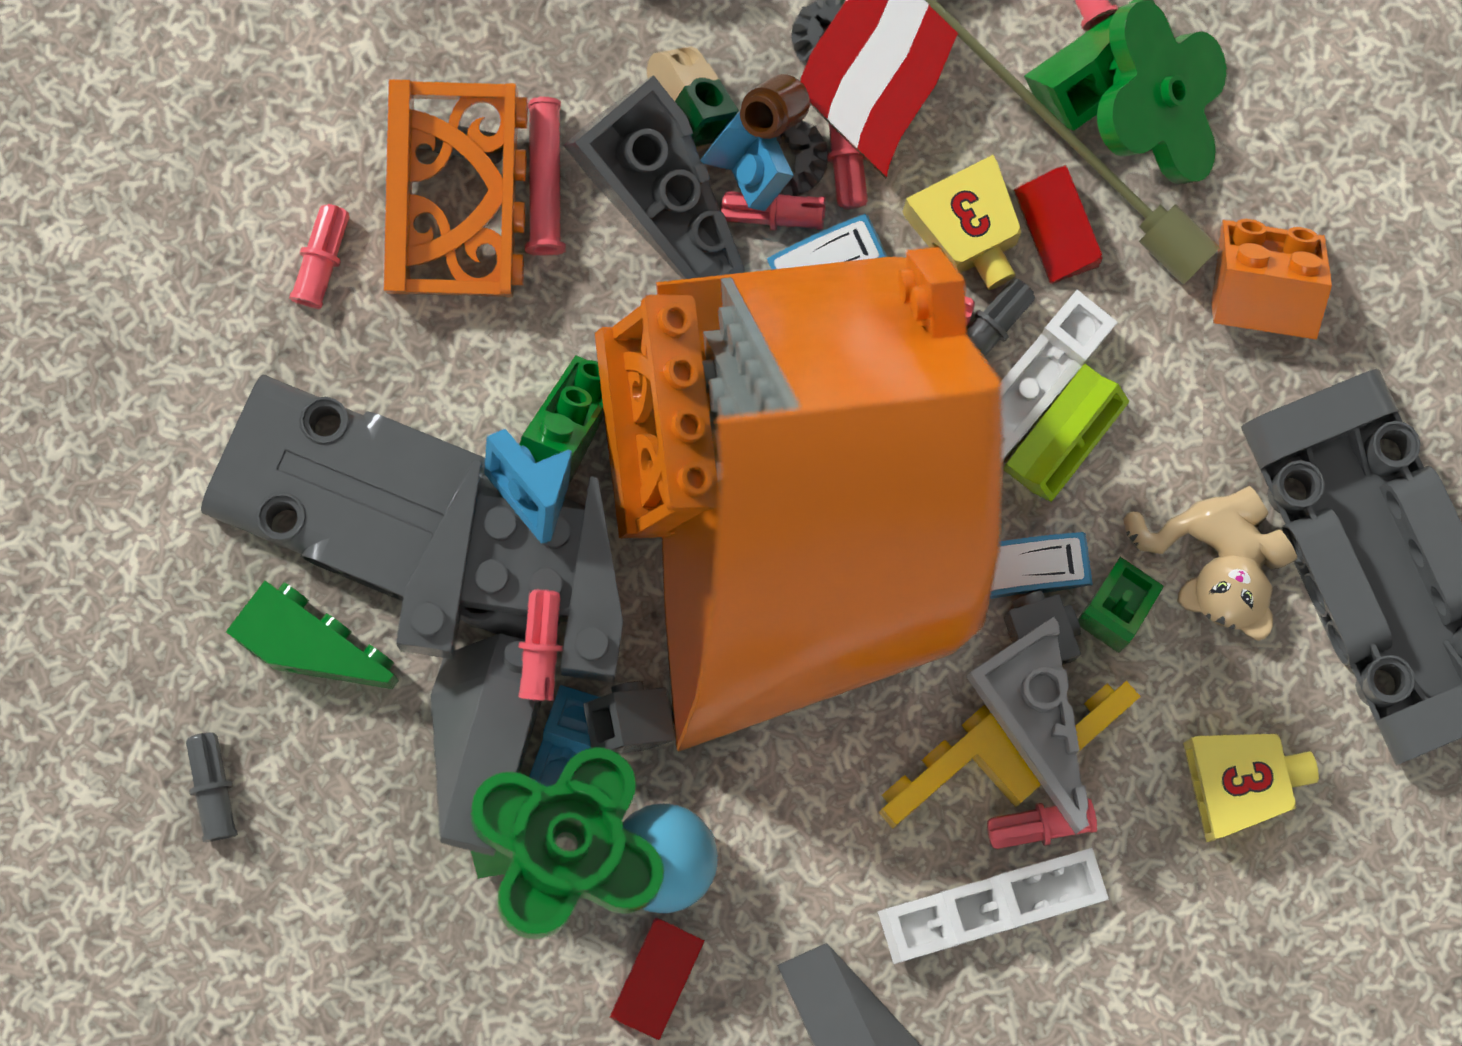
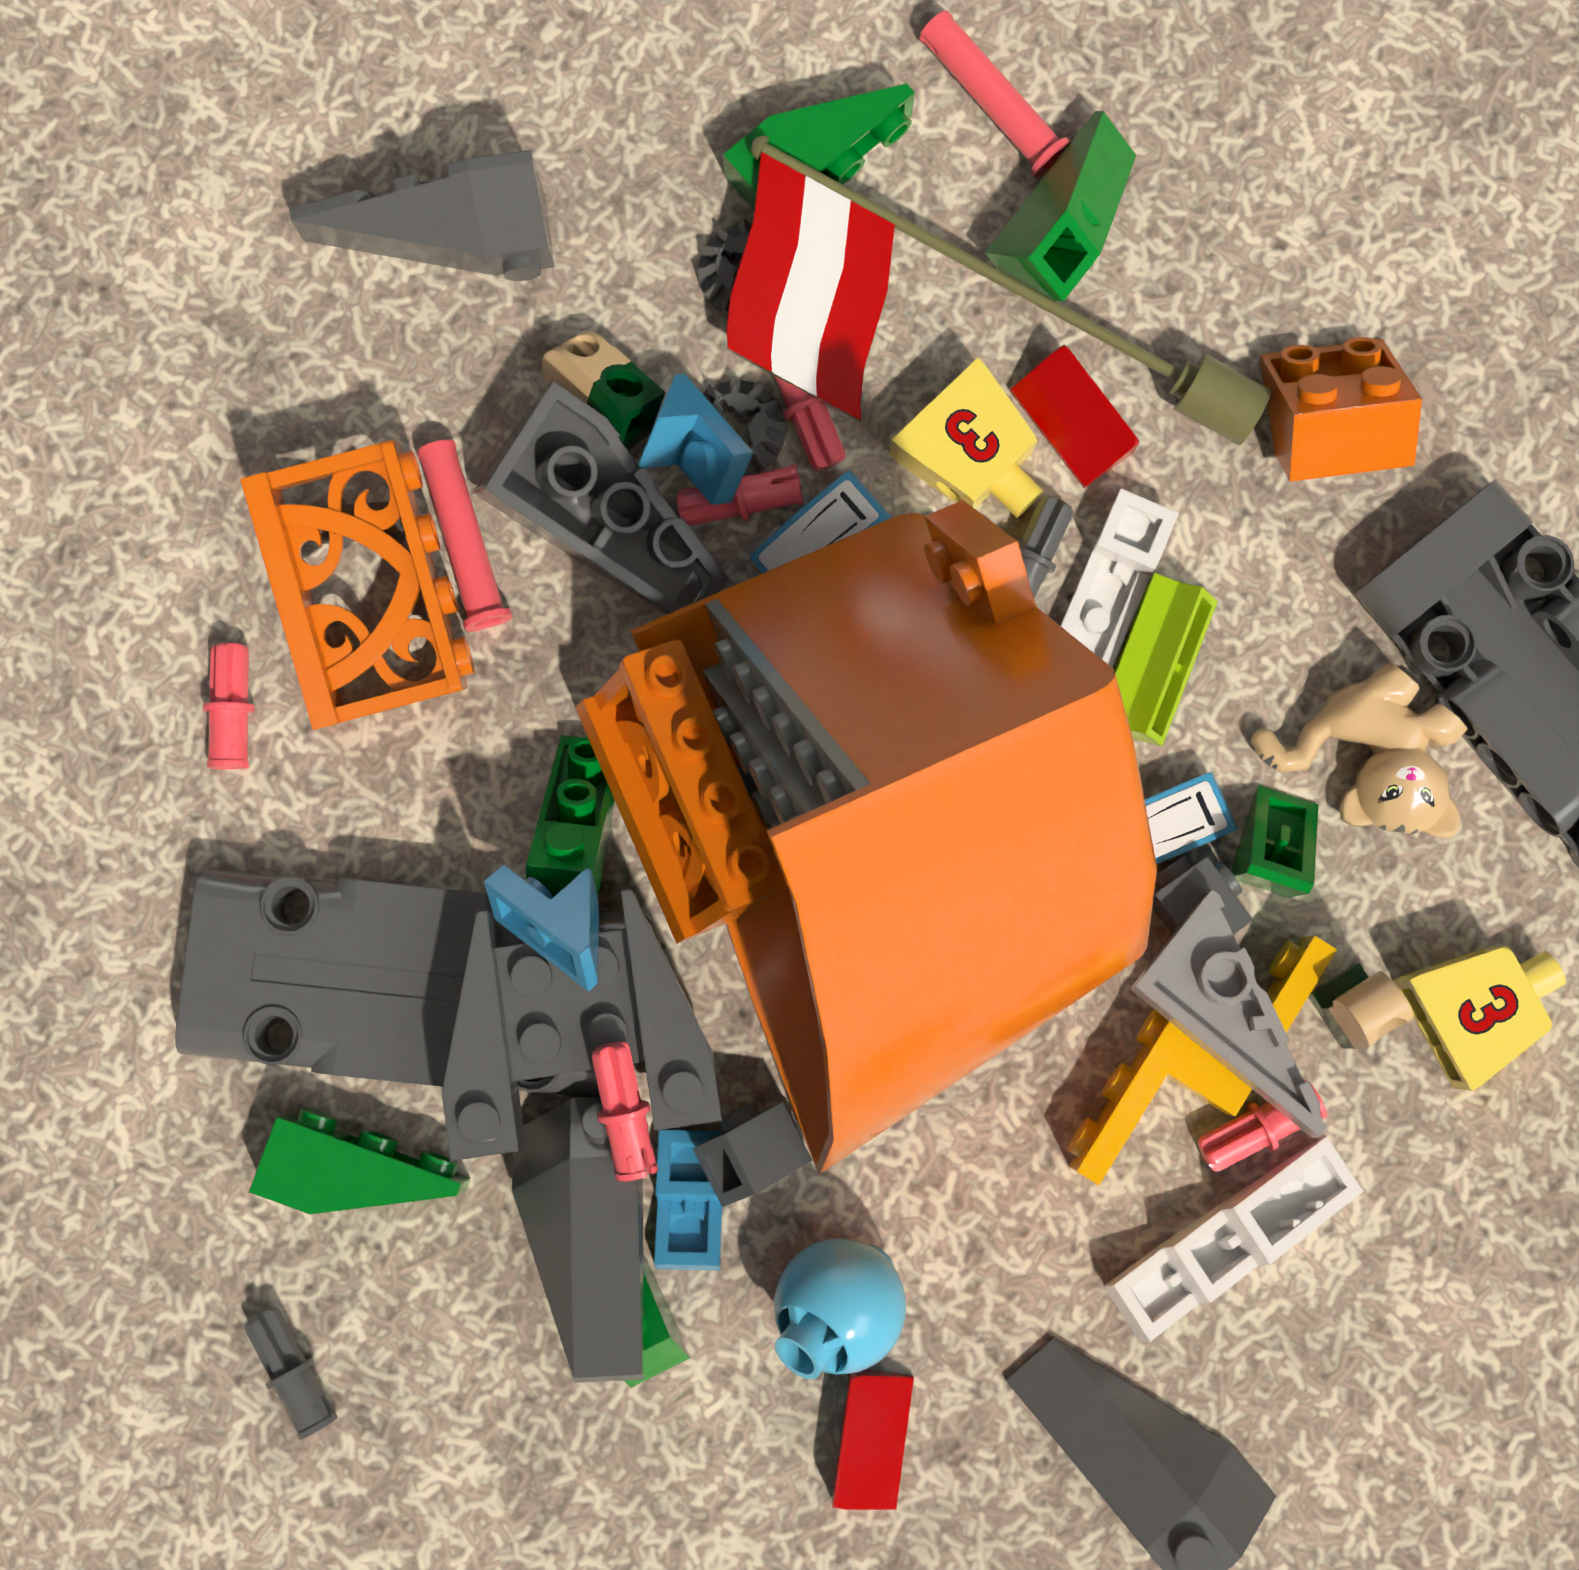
camera: 10 degrees left, 5 degrees up
(583, 805) = (779, 1354): green plant -> none
(774, 106) = (706, 376): reddish brown brick -> none
(1147, 749) = (1360, 1007): none -> tan leg
(1161, 92) = (1152, 226): green plant -> none

